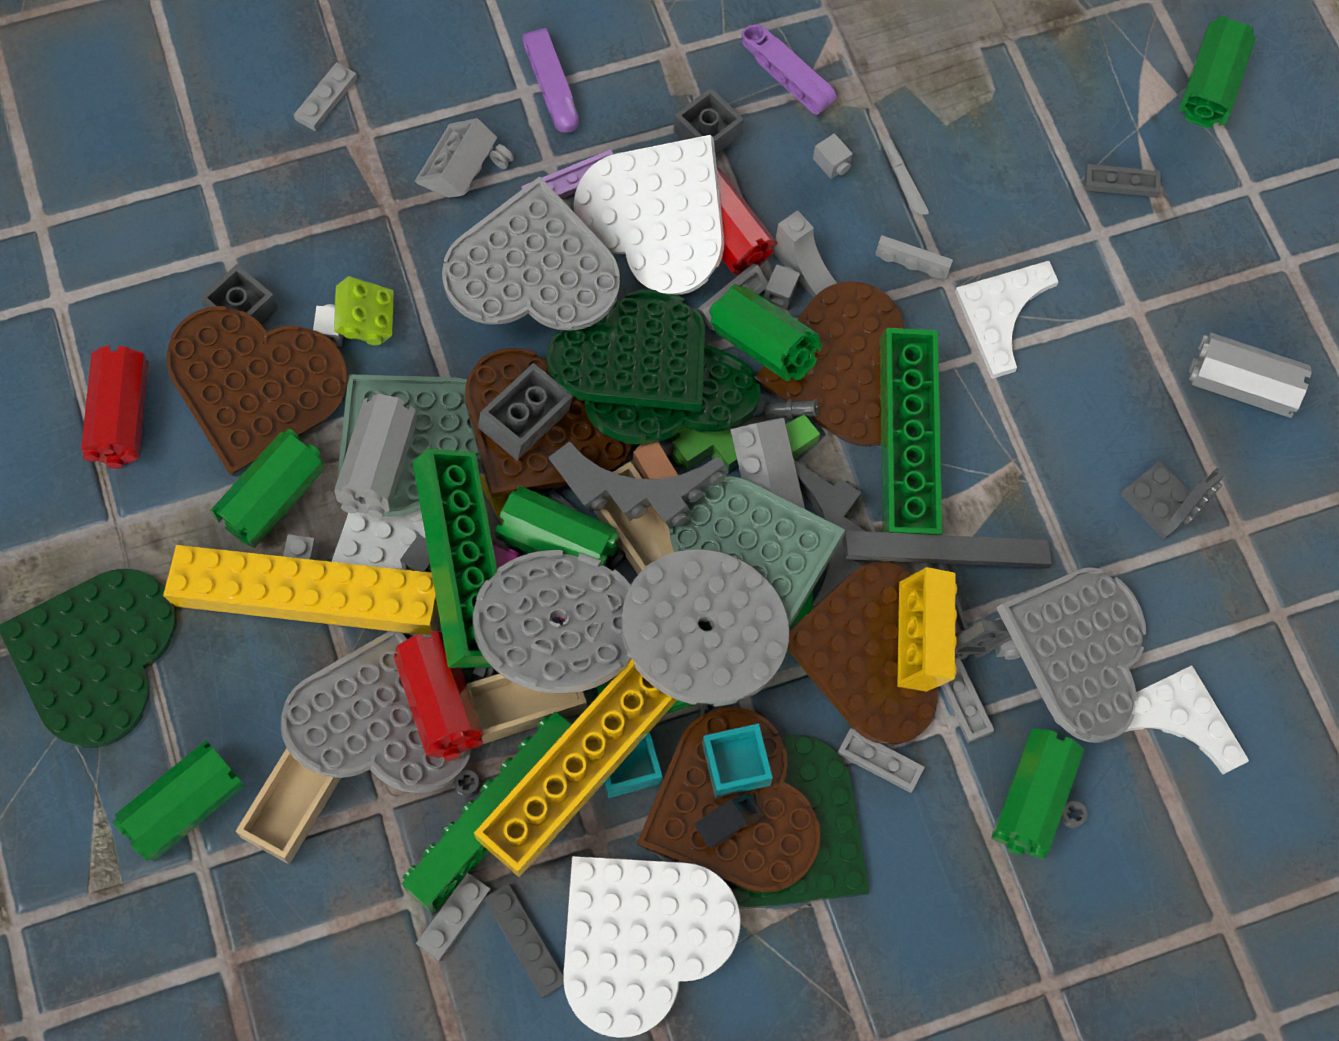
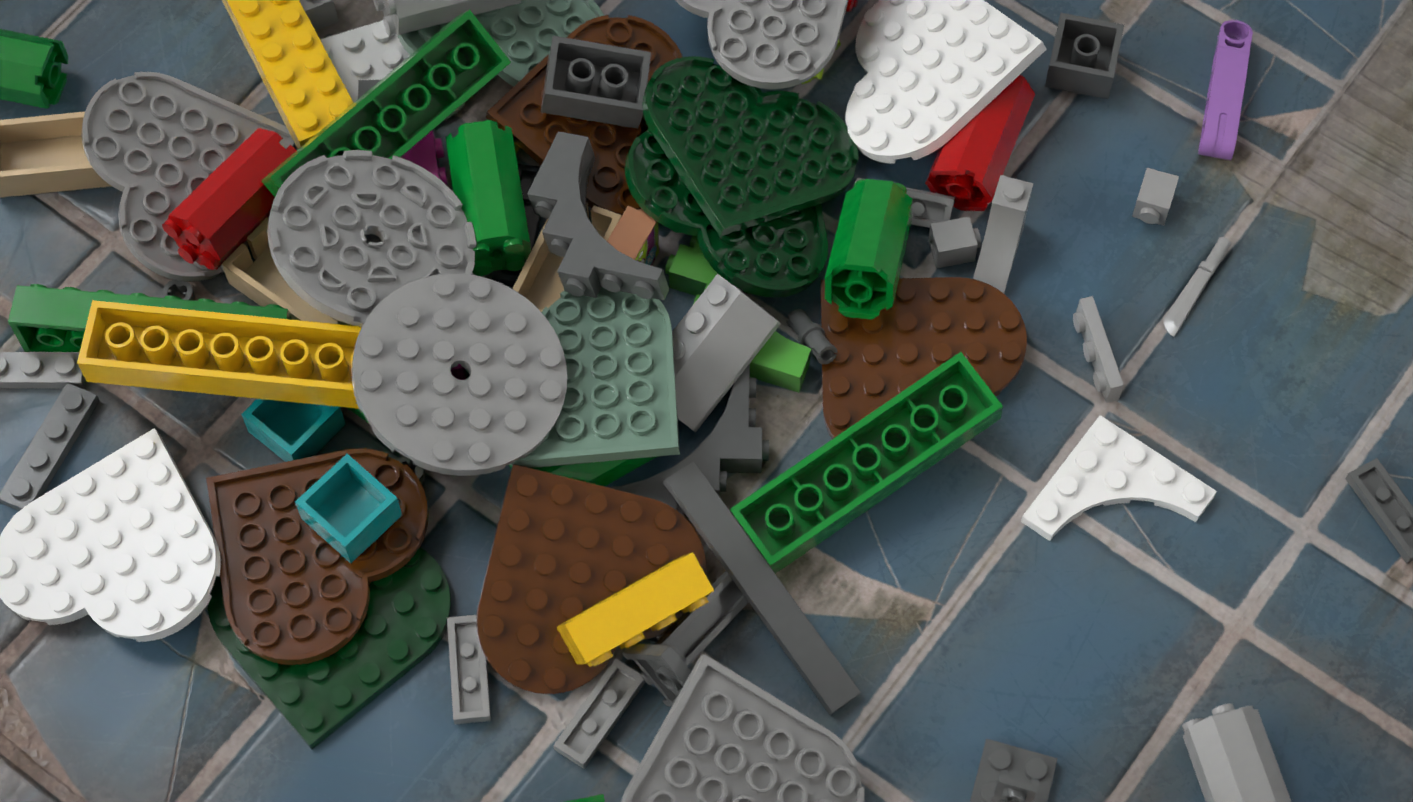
camera: 60 degrees right, 5 degrees down
(728, 820) = (275, 538): black slope -> none

